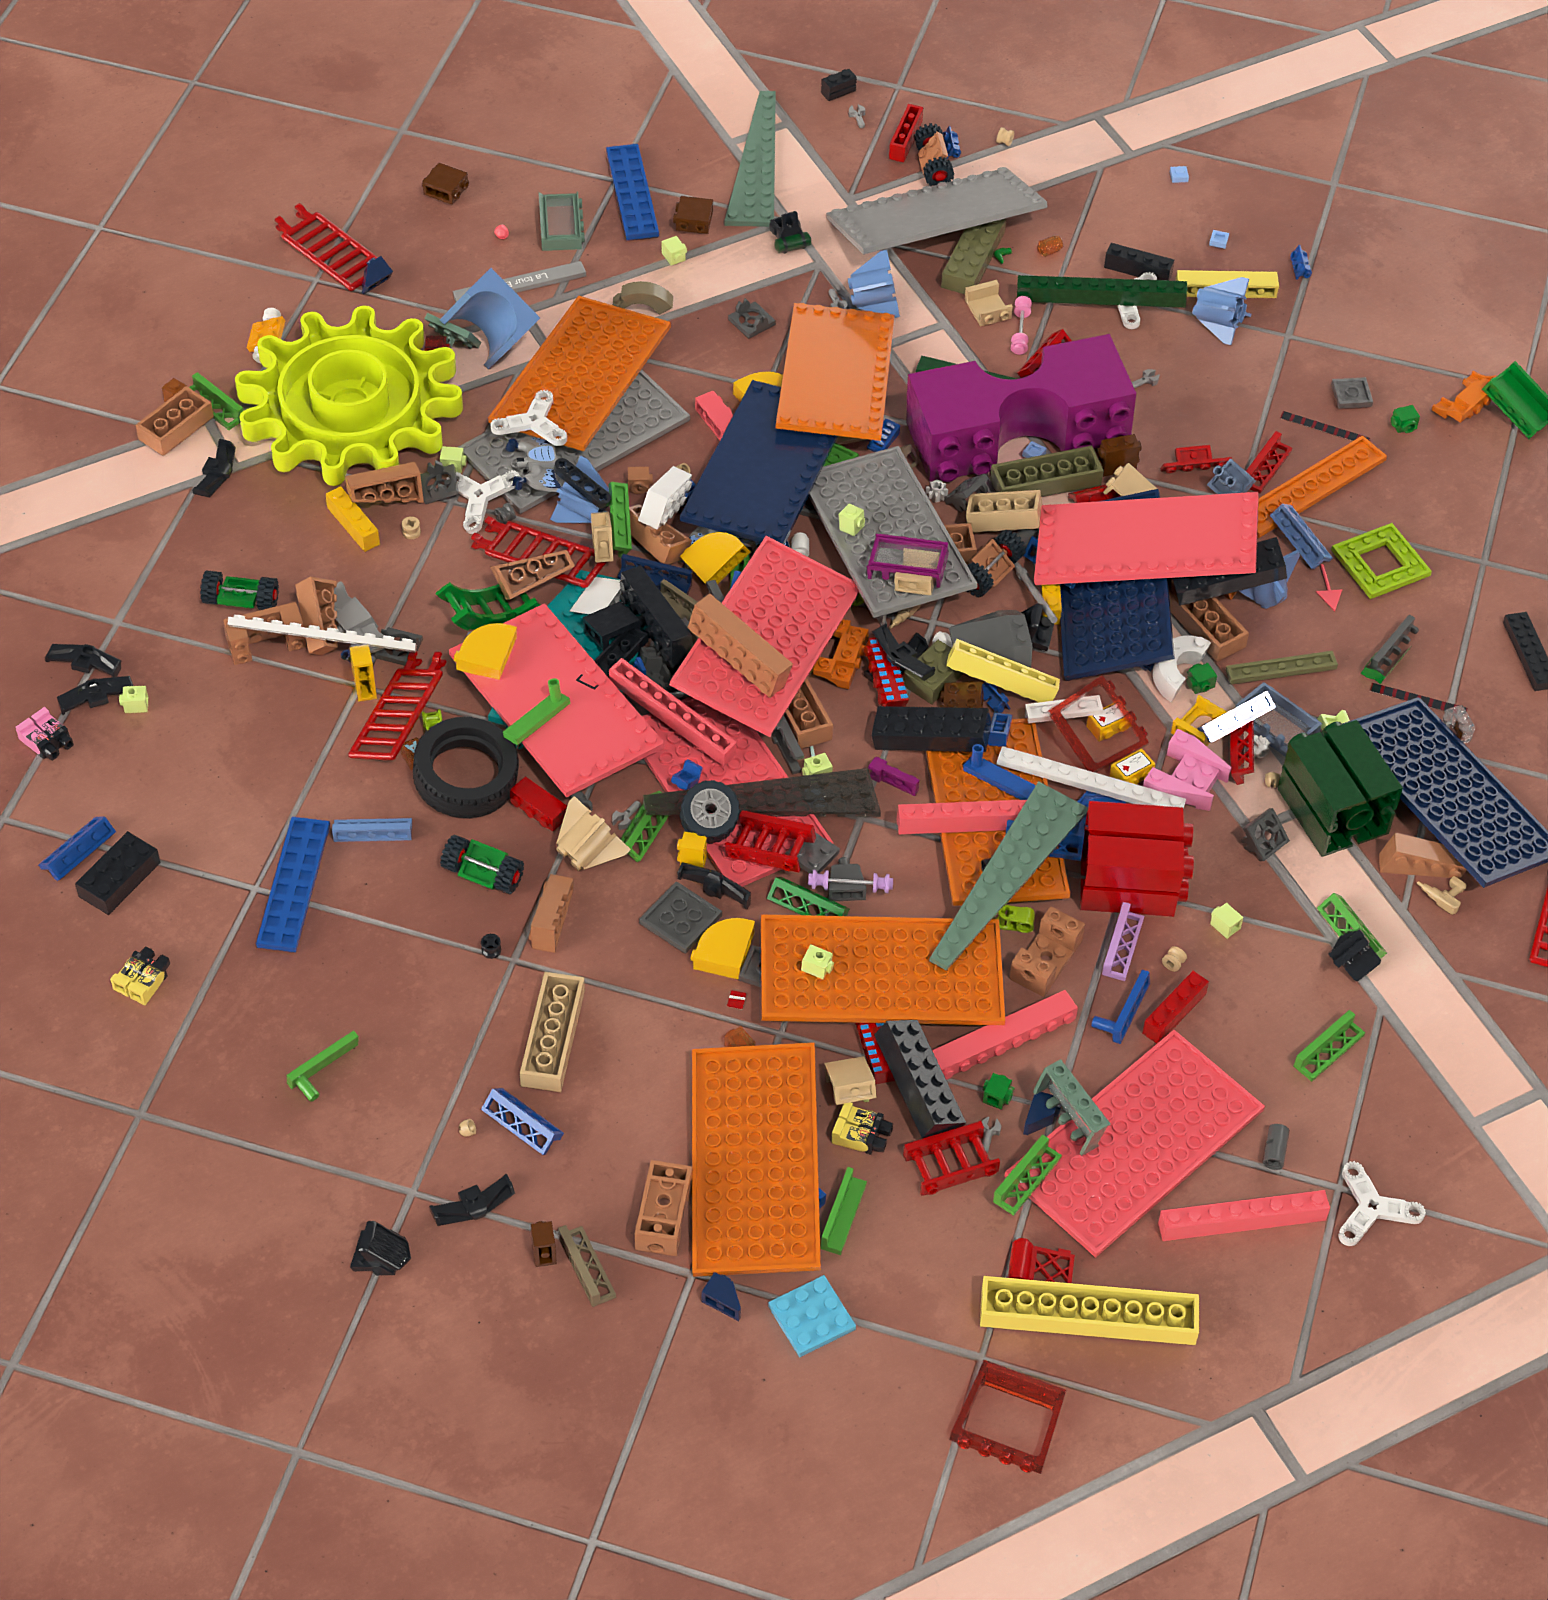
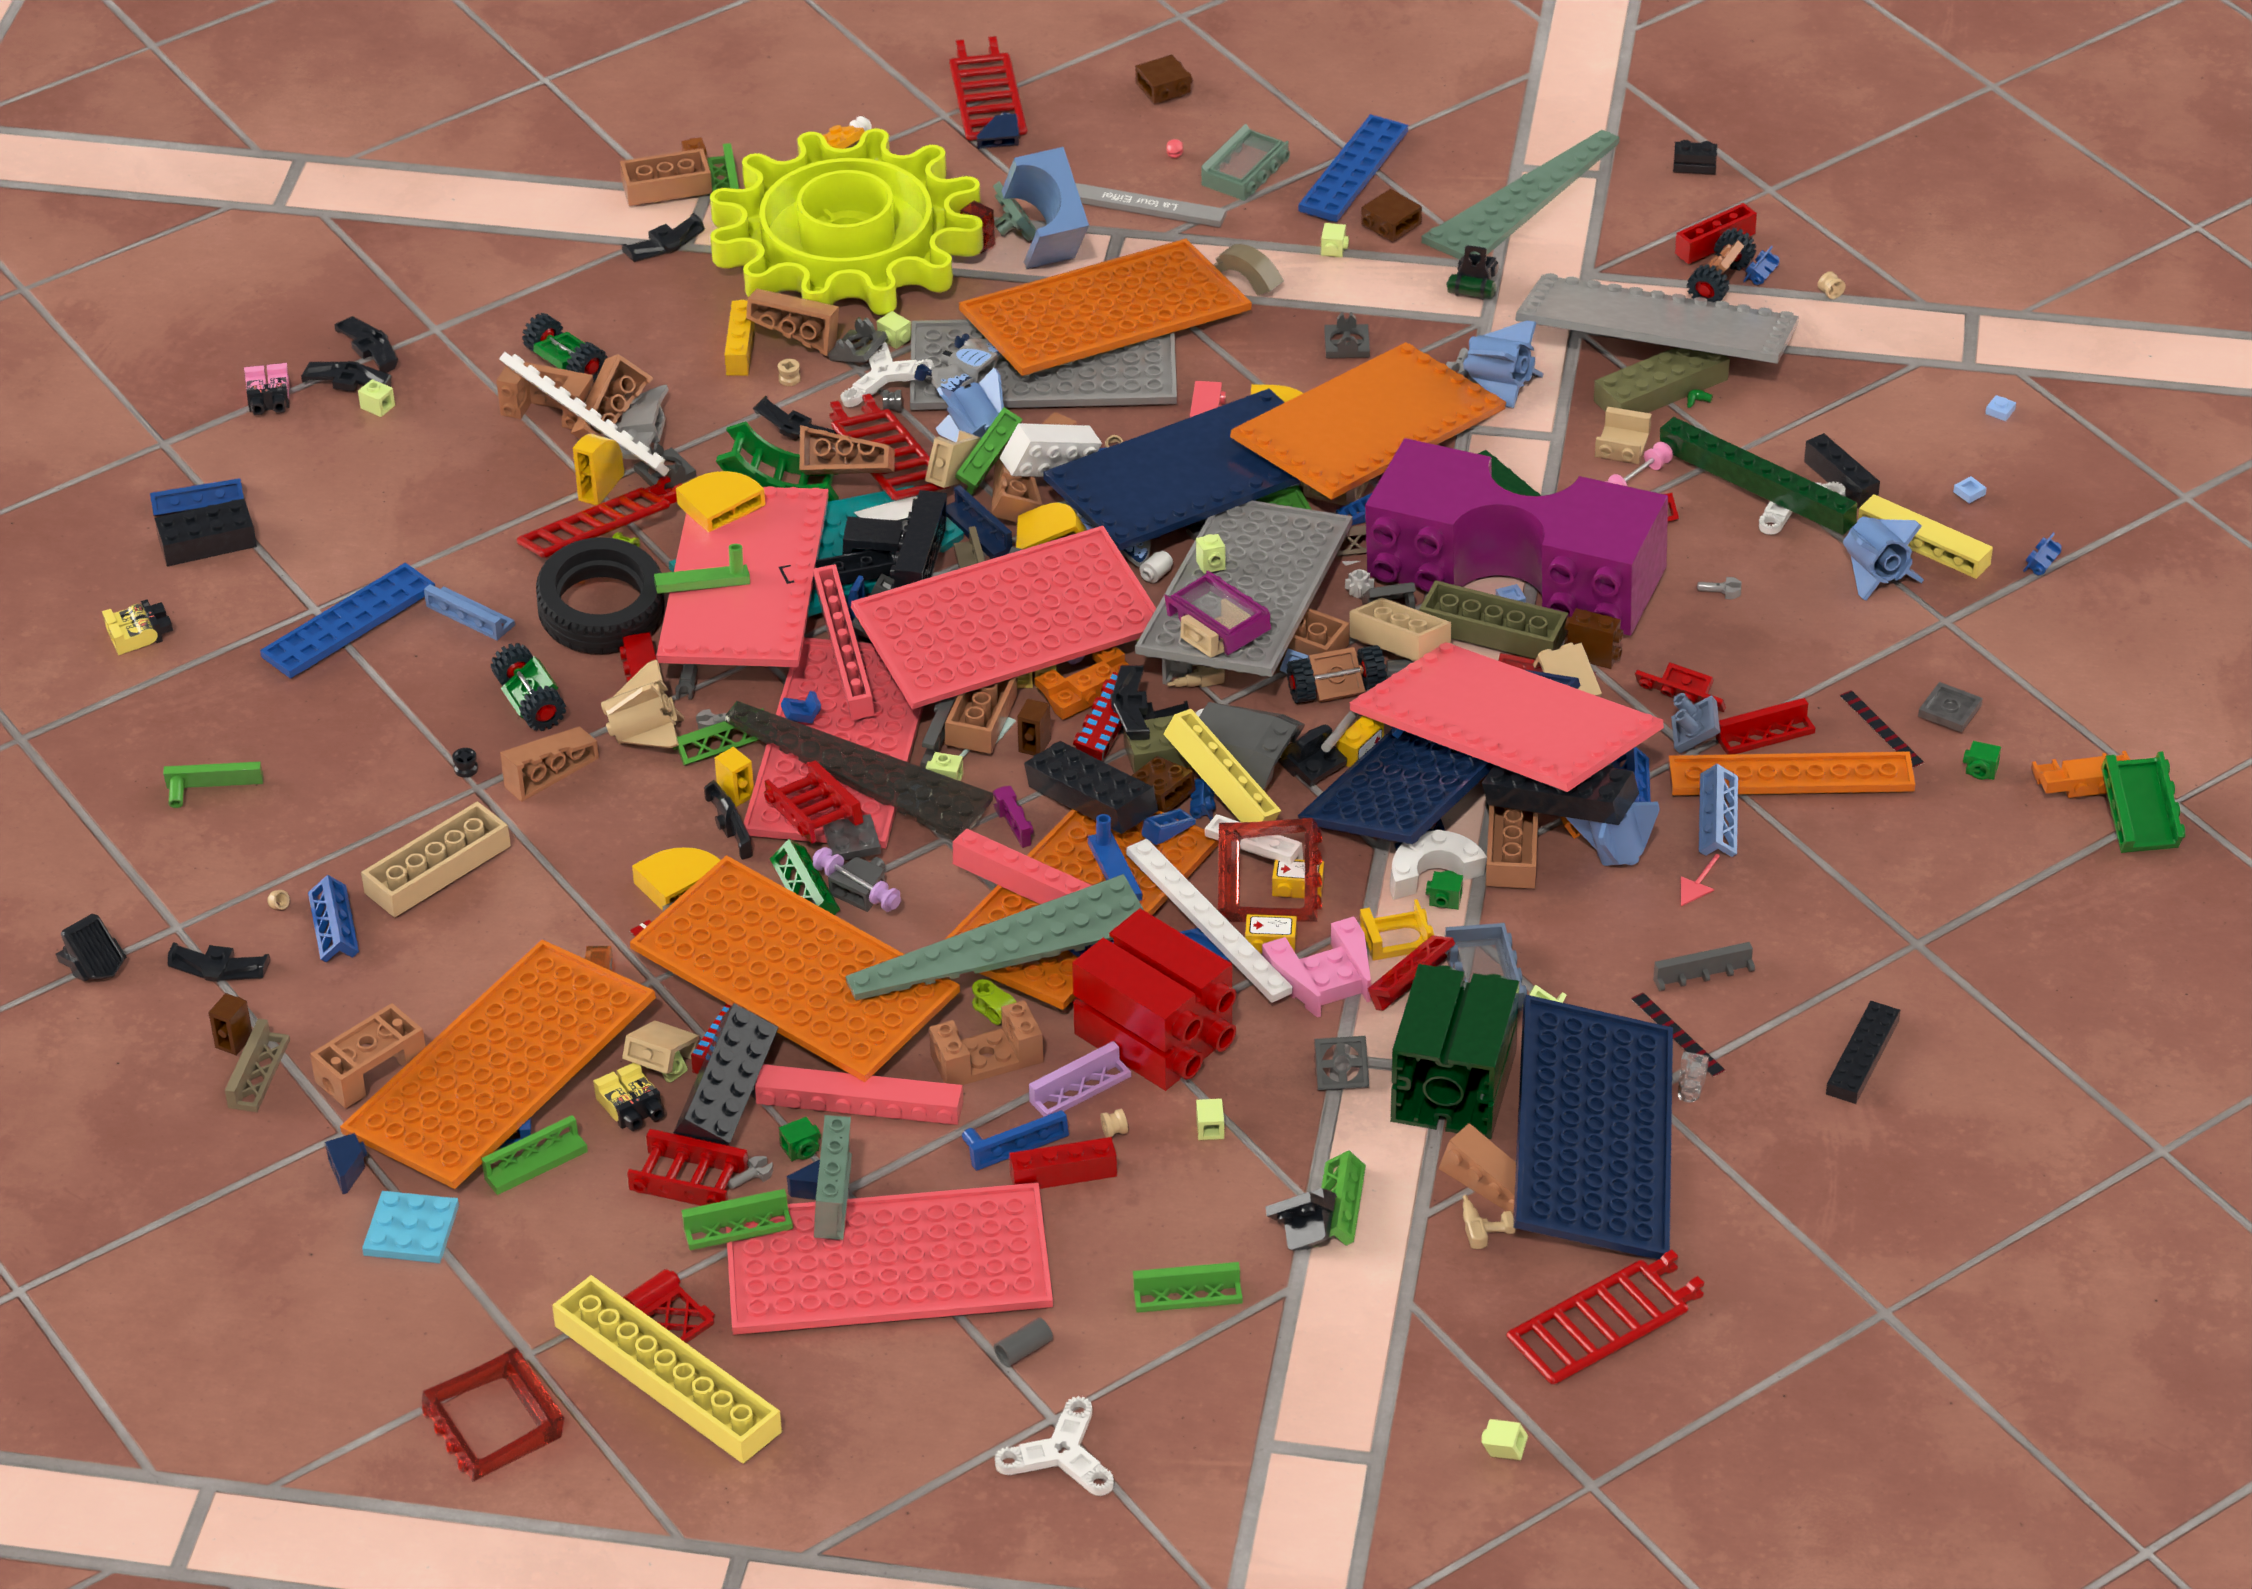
camera: 40 degrees right, 10 degrees down
(455, 564) = (787, 423): none -> black plate
(533, 420) = (995, 322): white piece -> none
(584, 481) = (973, 395): black beam -> none
(680, 917) = (666, 827): dark grey plate -> none
(714, 797) = (777, 742): wheel -> none
(739, 645) = (949, 601): nougat brick -> none
(817, 962) = (728, 919): yellowish green brick -> none
(848, 705) = (1034, 727): none -> reddish brown brick
(858, 115) = (1688, 197): light grey bar -> none
(1050, 245) = (1758, 411): clear orange brick -> none
(1237, 717) = (1426, 934): fence -> none
(1243, 1215) = (917, 1380): coral brick -> none
(1281, 667) = (1550, 924): olive plate -> none
(1374, 674) = (1676, 987): green piece -> none
(1412, 567) = (1817, 909): lime plate -> none

